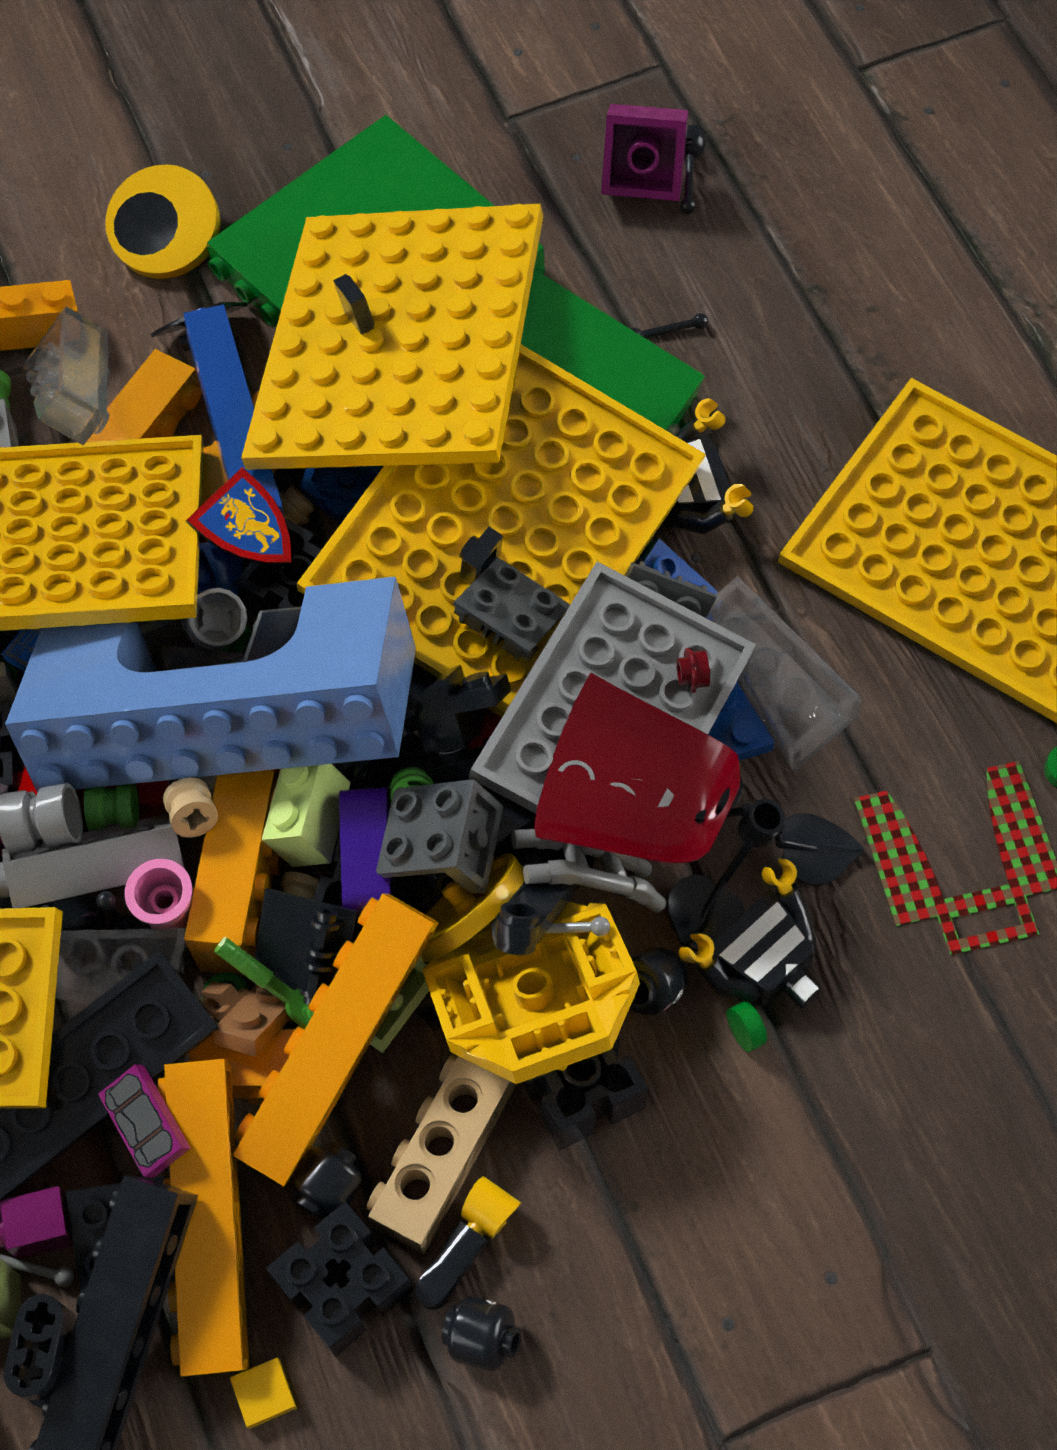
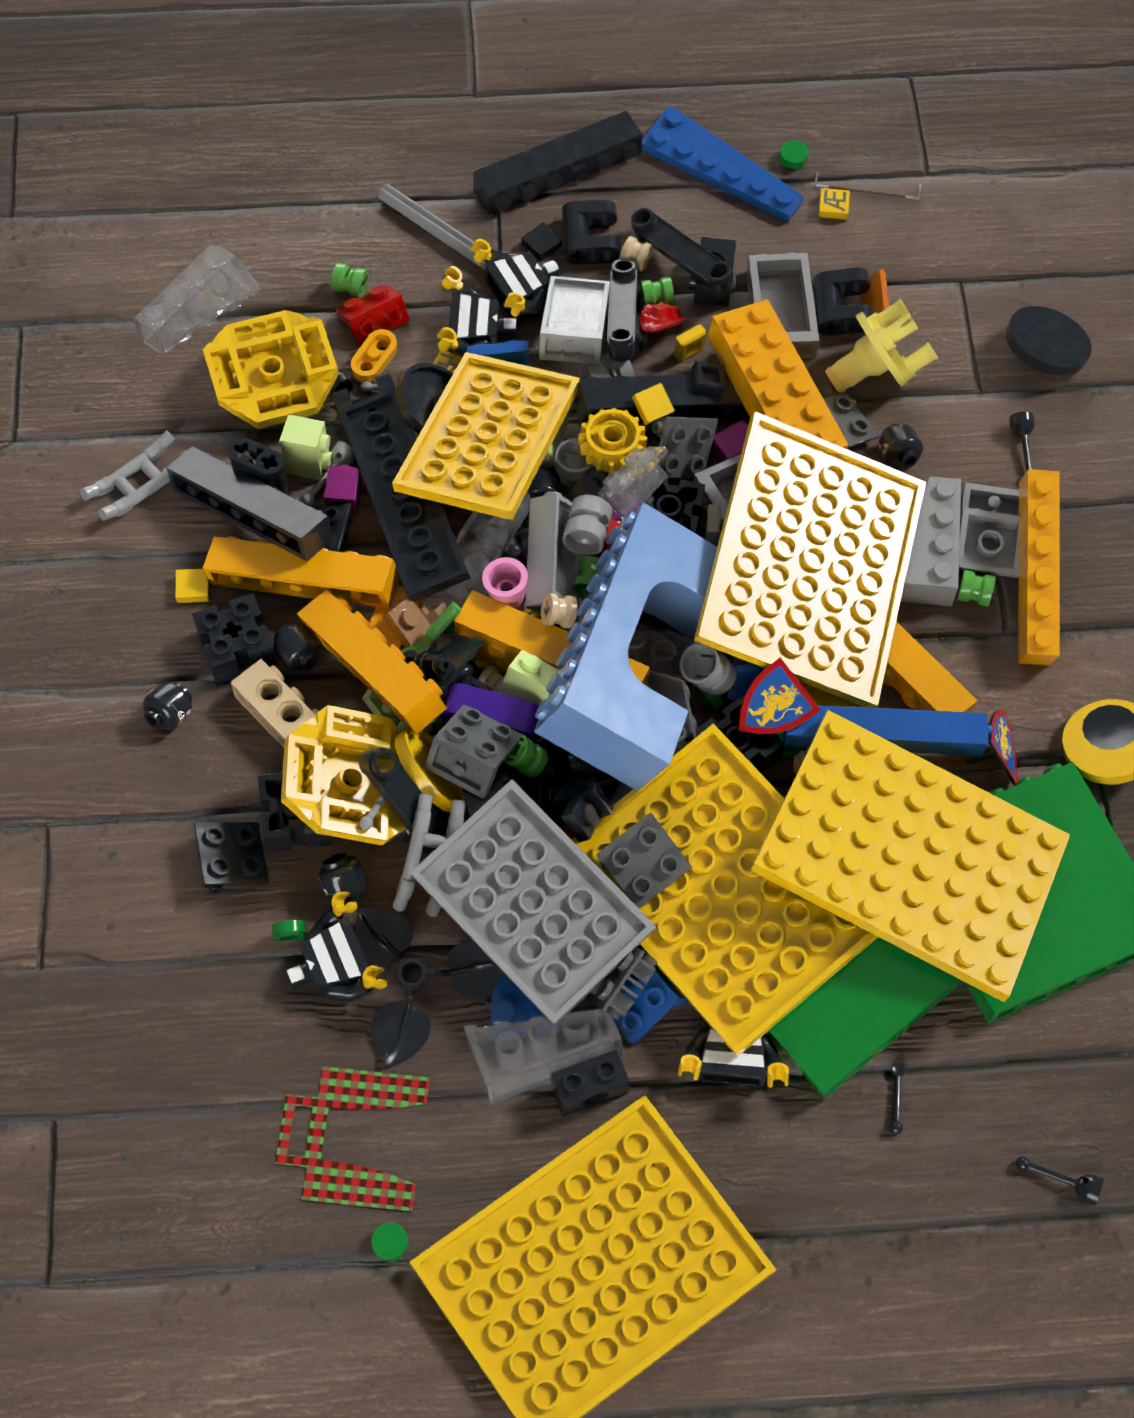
camera: 105 degrees right, 0 degrees up
(71, 376) = (959, 633): clear wedge -> none
(144, 1121) = (363, 541): tile -> none
(354, 303) = (936, 816): black tile -> none
(479, 554) = (690, 846): black plate -> none
(486, 1213) = (238, 731): piece -> none
(635, 740) = (440, 859): dark red piece -> none
(644, 152) = (1074, 1129): magenta brick -> none
(670, 1149) = (230, 854): none -> black hinge
(693, 669) = (539, 959): dark red plate -> none
(797, 606) = (589, 1083): none -> black brick

